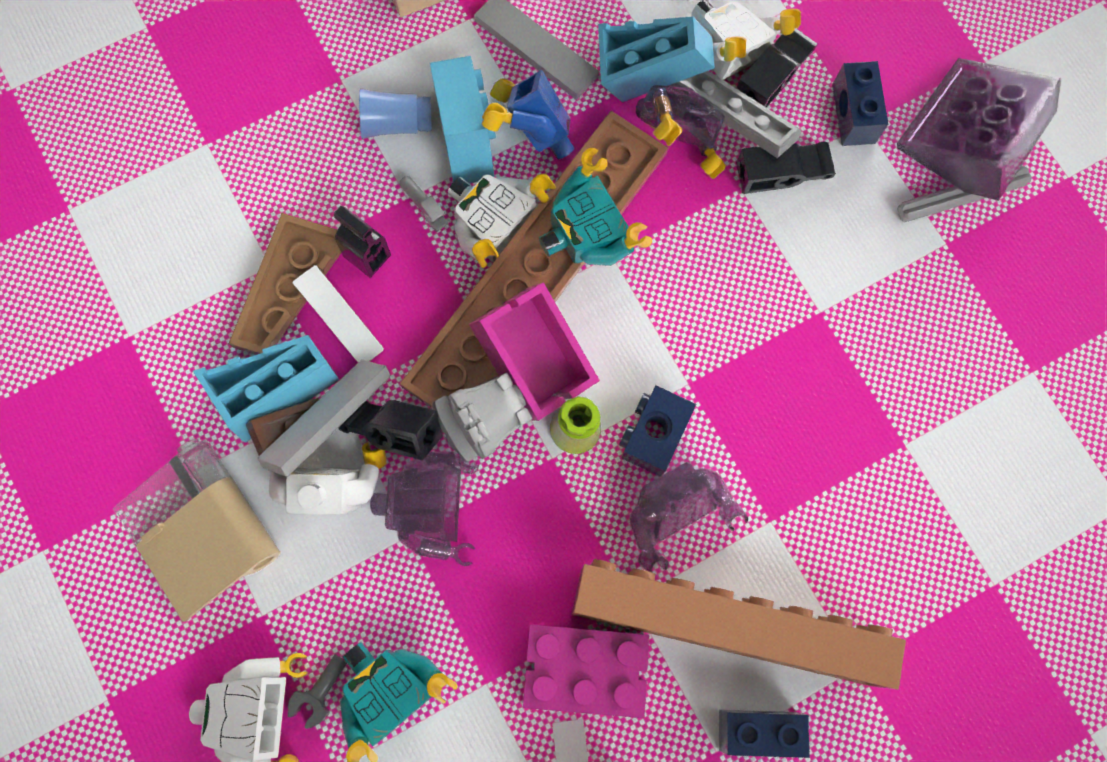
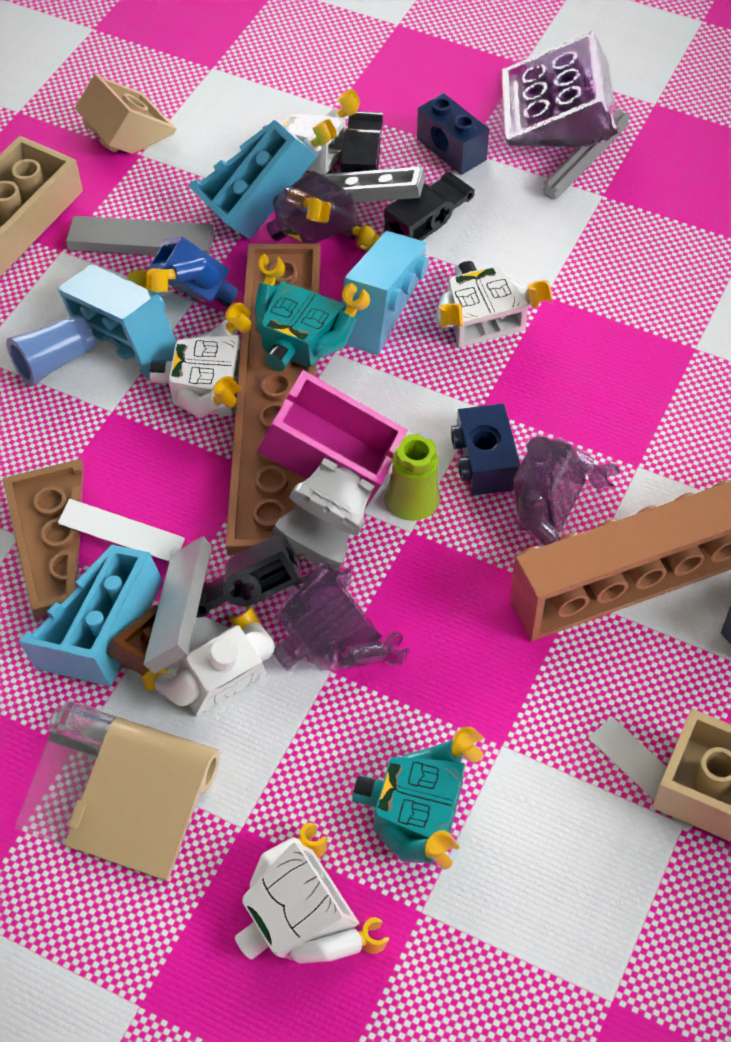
camera: 30 degrees left, 20 degrees down
(317, 694) = (351, 853): dark grey bar -> none
(360, 242) = (102, 449): piece -> none
(427, 205) = (143, 400): light grey bar -> none
(586, 671) = (582, 665): dark pink piece -> none
(688, 223) = (389, 276): none -> medium azure wedge
(758, 293) = (487, 303): none -> white torso

